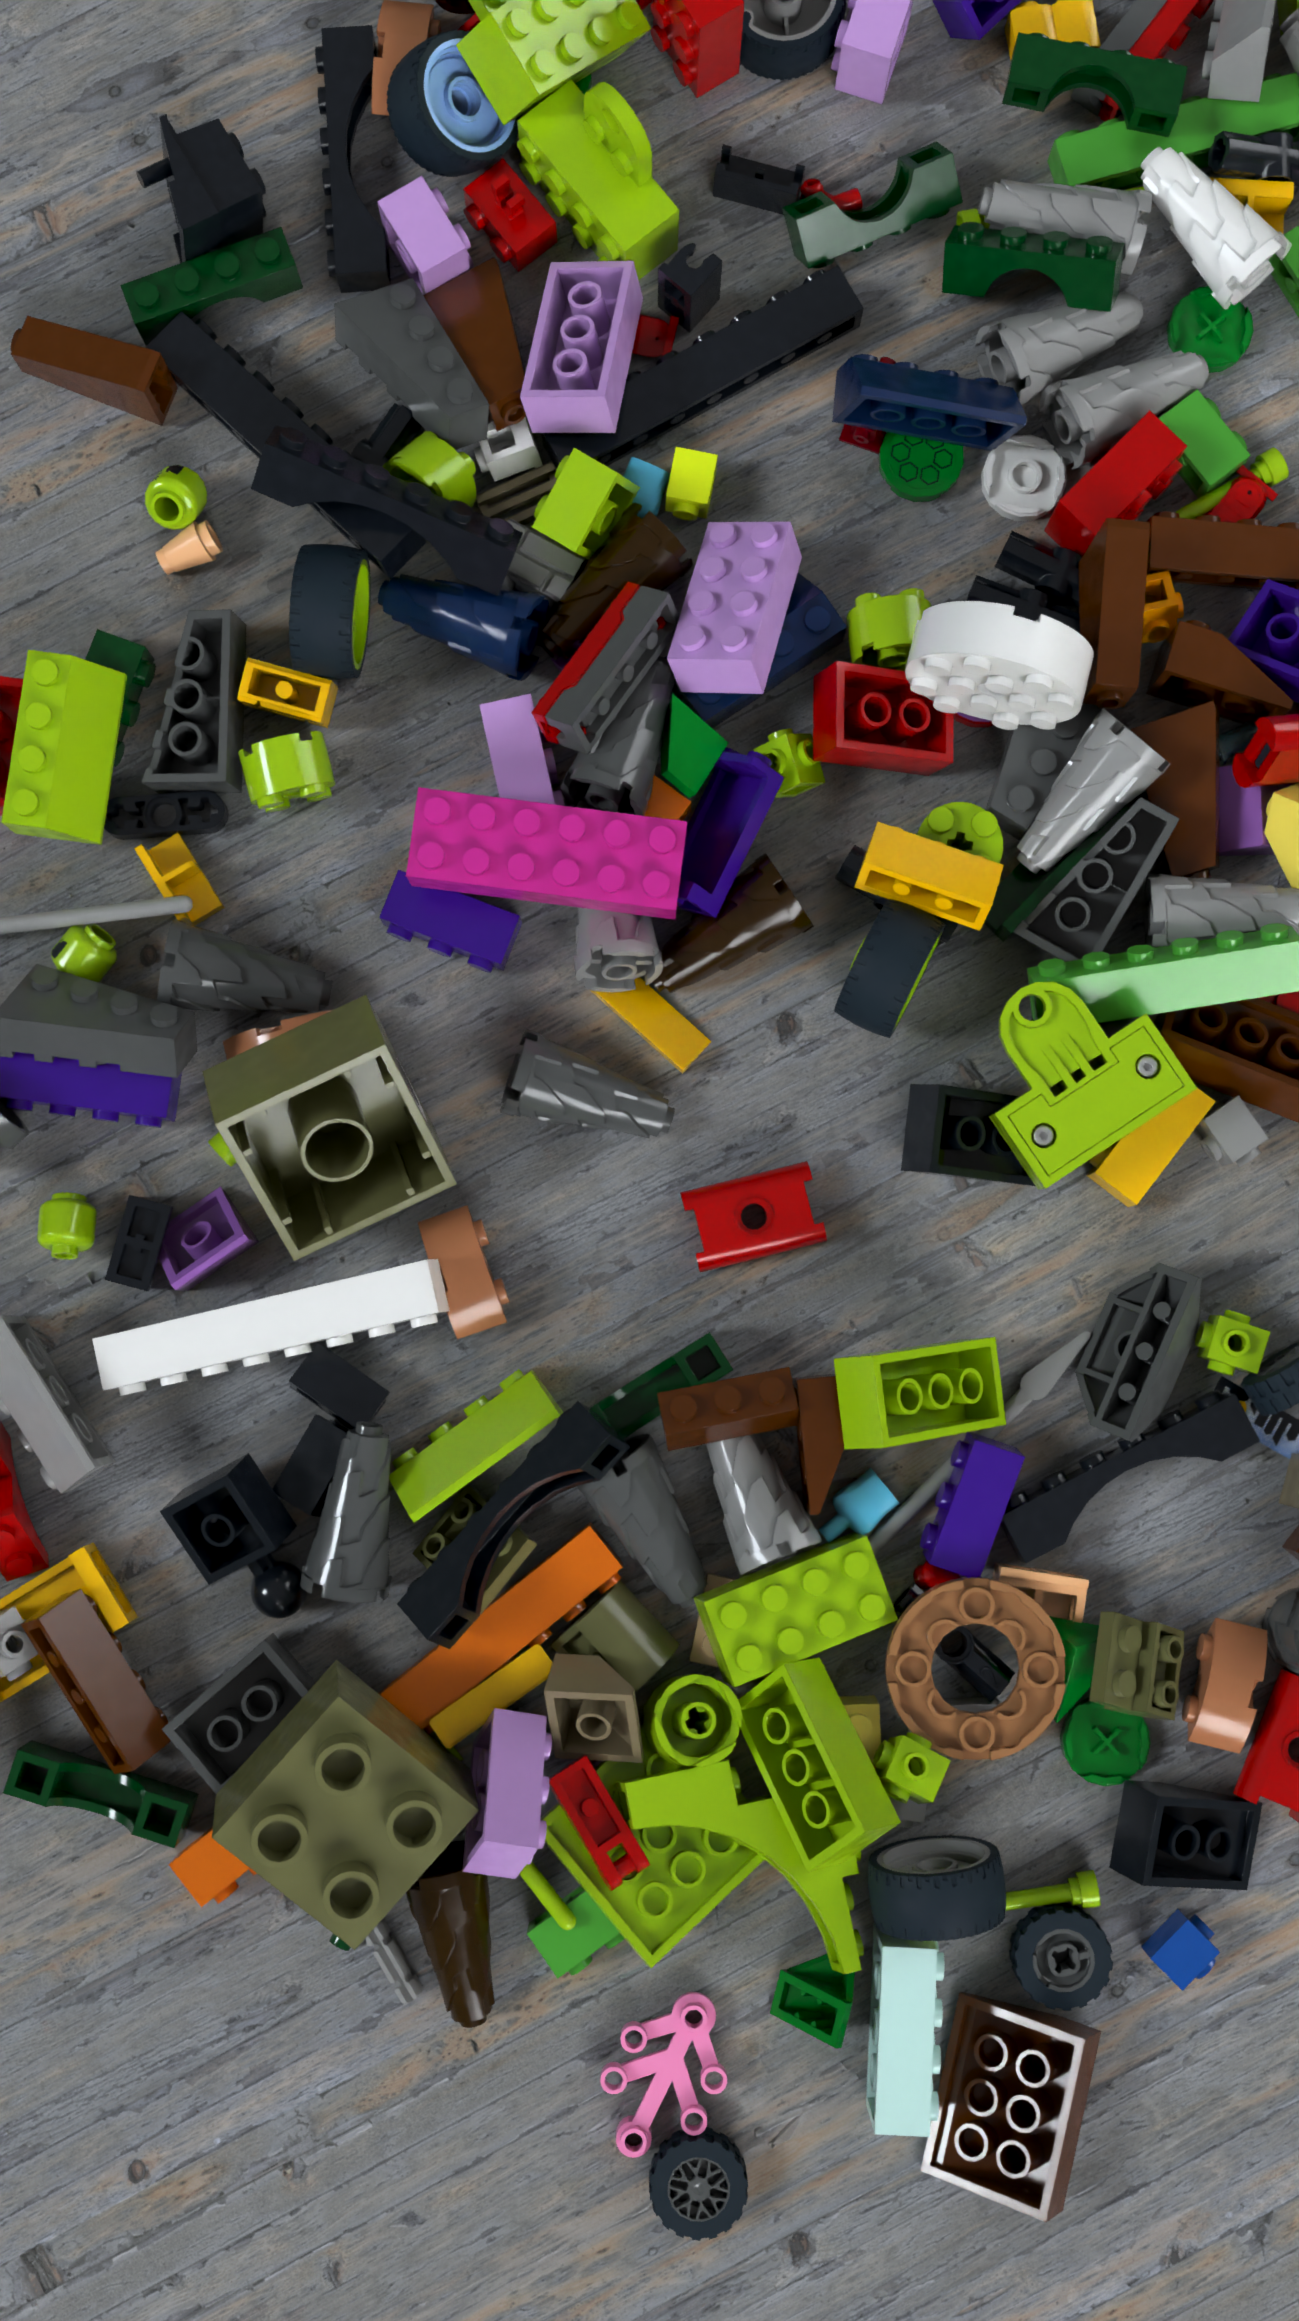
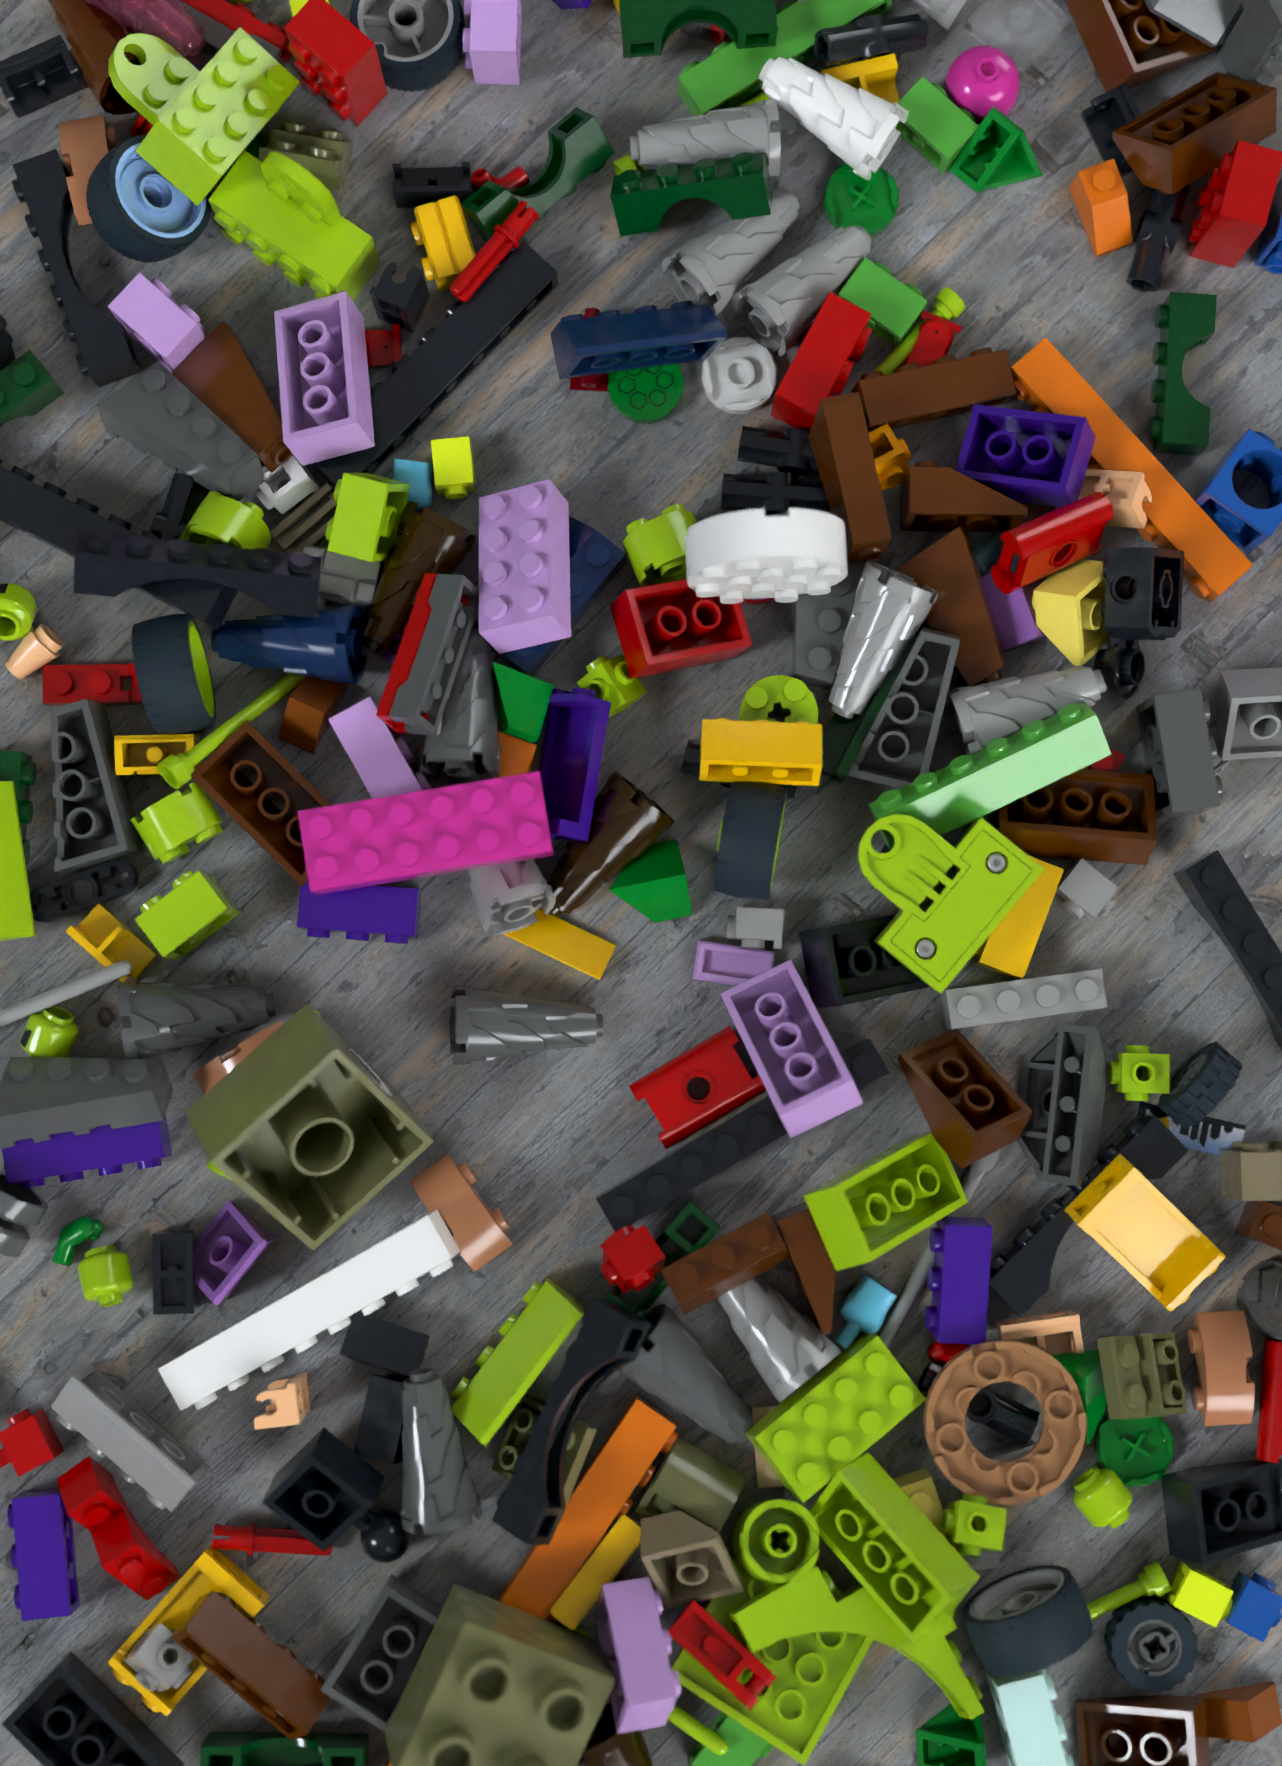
camera: 20 degrees left, 0 degrees up
(46, 1173) = (74, 1234): none -> green arm
(152, 1556) = (265, 1540): none -> red axle
(220, 1417) = (288, 1403): none -> light nougat hinge
(247, 599) = (95, 682): none -> red plate
(267, 869) = (186, 914): none -> lime brick
(304, 710) = (178, 769): none -> lime piece
(383, 766) = (261, 795): none -> reddish brown slope
(458, 697) = (309, 712): none -> dark orange slope
(509, 216) = (226, 279): red brick -> none
(628, 1373) = (631, 1258): none -> red brick
(655, 111) = (321, 154): none -> olive brick
(755, 246) = (445, 239): none -> yellow brick
(773, 988) = (656, 883): none -> green slope
(786, 1280) = (717, 1149): none -> black brick
(803, 266) = (494, 251): none -> red axle
(830, 1100) = (730, 963): none -> lavender tile
(867, 1065) = (756, 927): none -> light grey brick
(867, 1202) = (791, 1049): none -> lavender brick
(1034, 1313) = (963, 1098): none -> reddish brown slope
(1055, 1783) = (1102, 1497): none -> lime head
(1129, 1919) = (1199, 1594): none -> neon yellow brick
(1130, 1227) = (1023, 999): none -> light grey brick
(1137, 2059) = (1242, 1712): none -> dark orange slope
(1186, 1514) = (1145, 1233): none -> yellow panel

